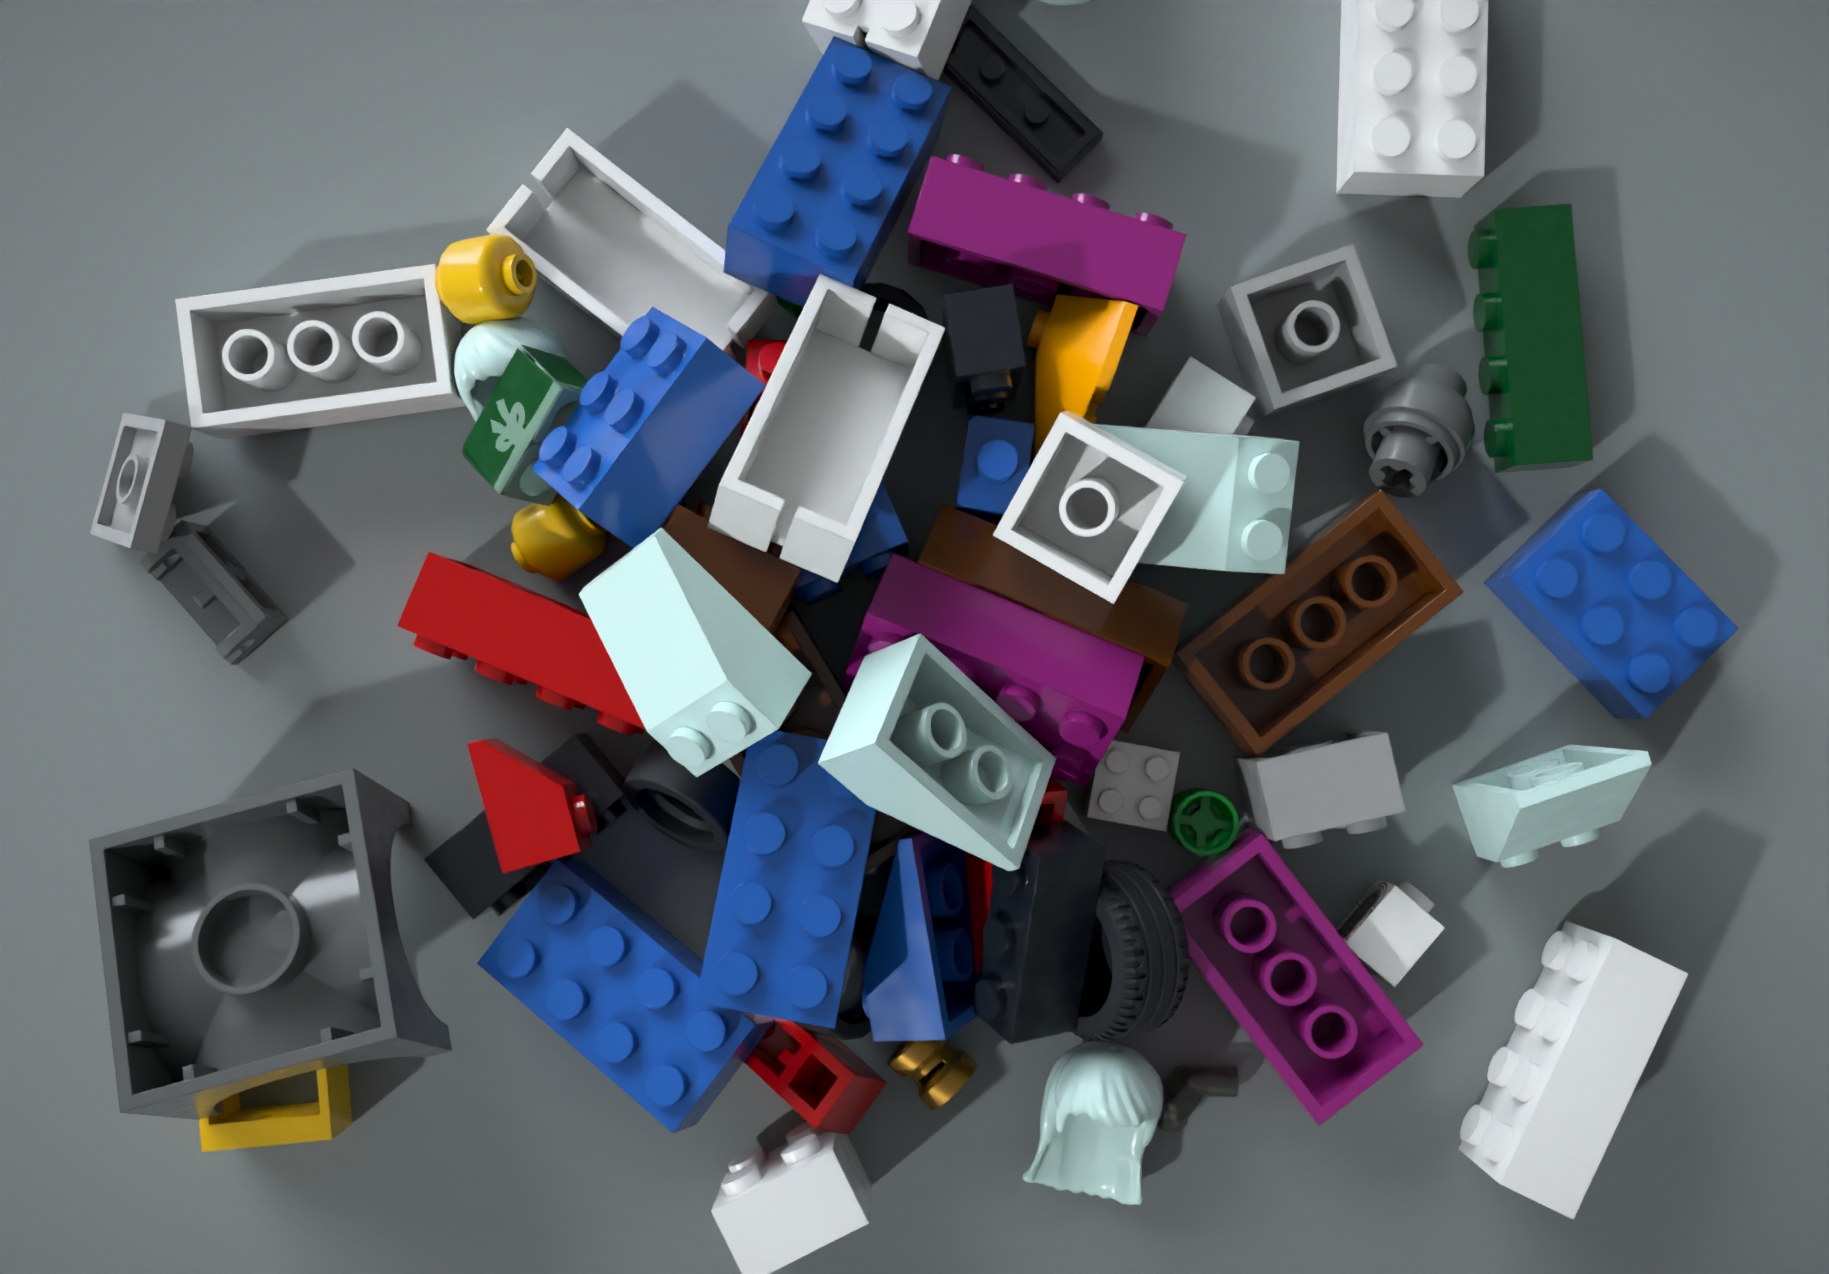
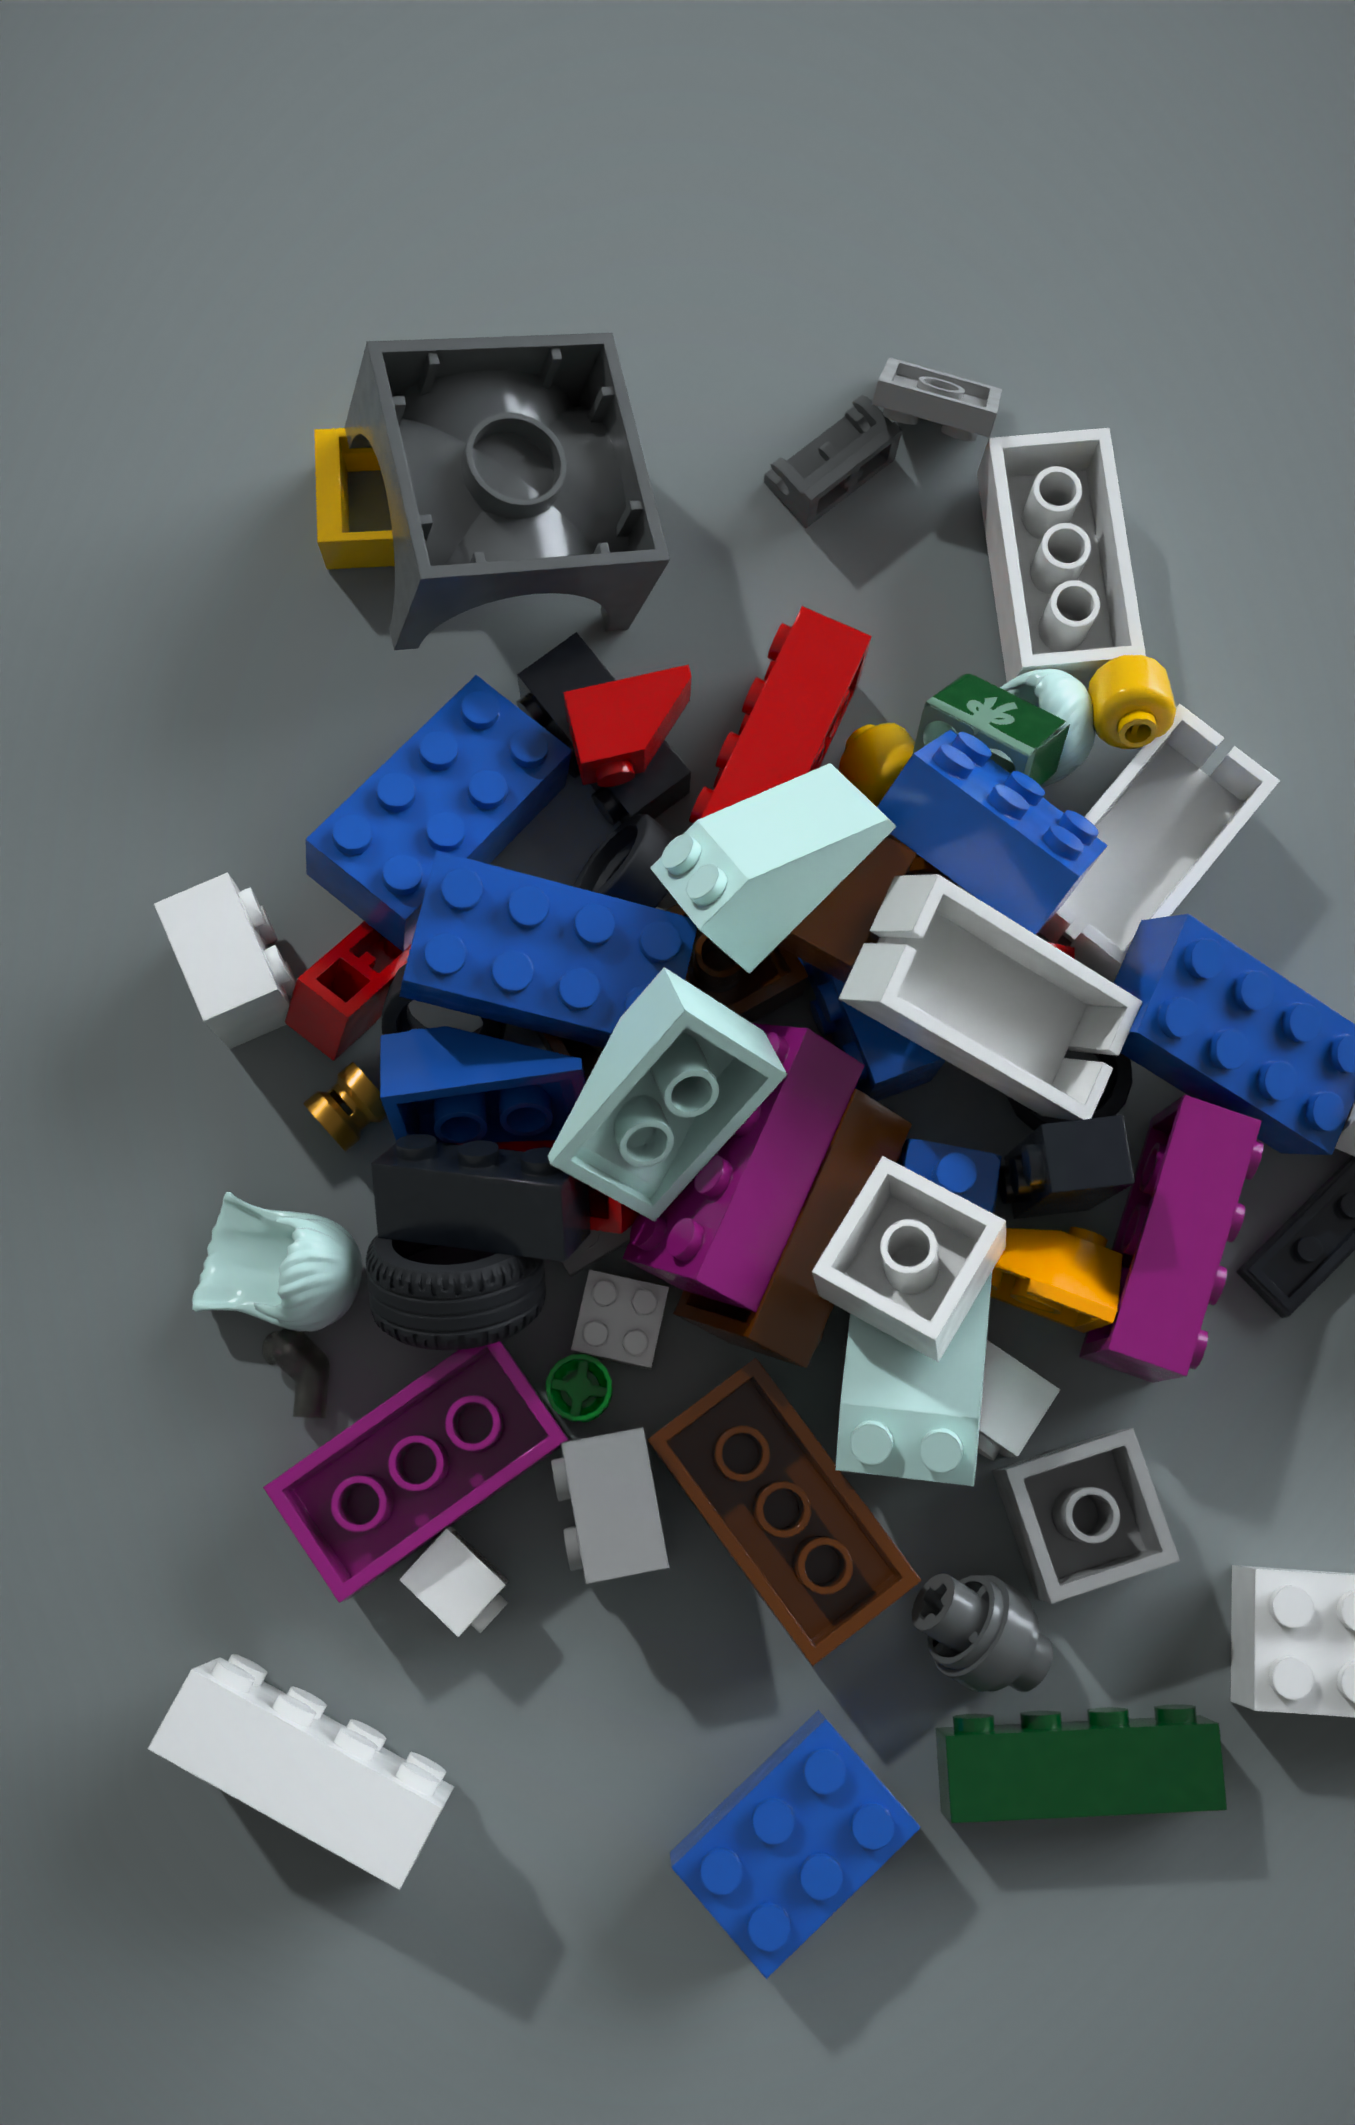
camera: 85 degrees right, 10 degrees down
(1549, 800) = (584, 1758): light aqua slope -> none

